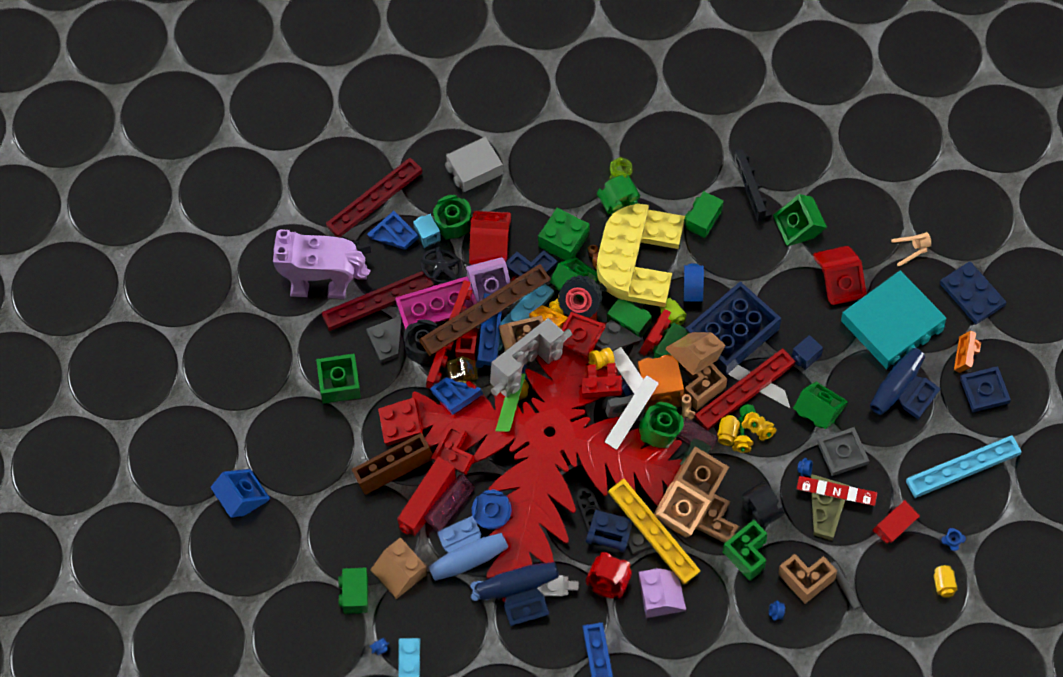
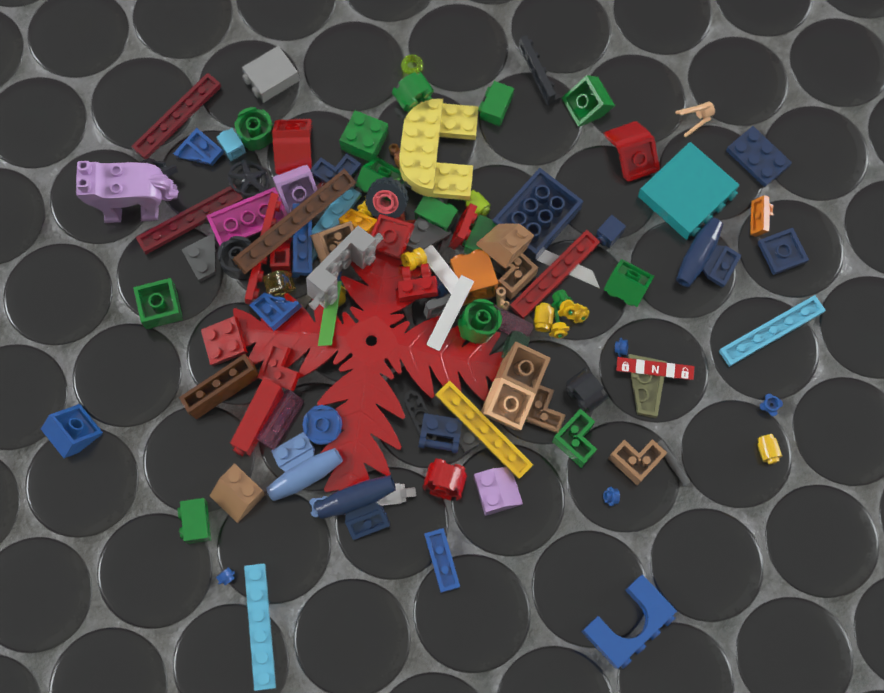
camera: 10 degrees left, 10 degrees up
(693, 282) = (494, 172): blue brick -> none
(843, 451) = (656, 327): dark grey plate -> none
(896, 522) = (715, 394): red hinge -> none

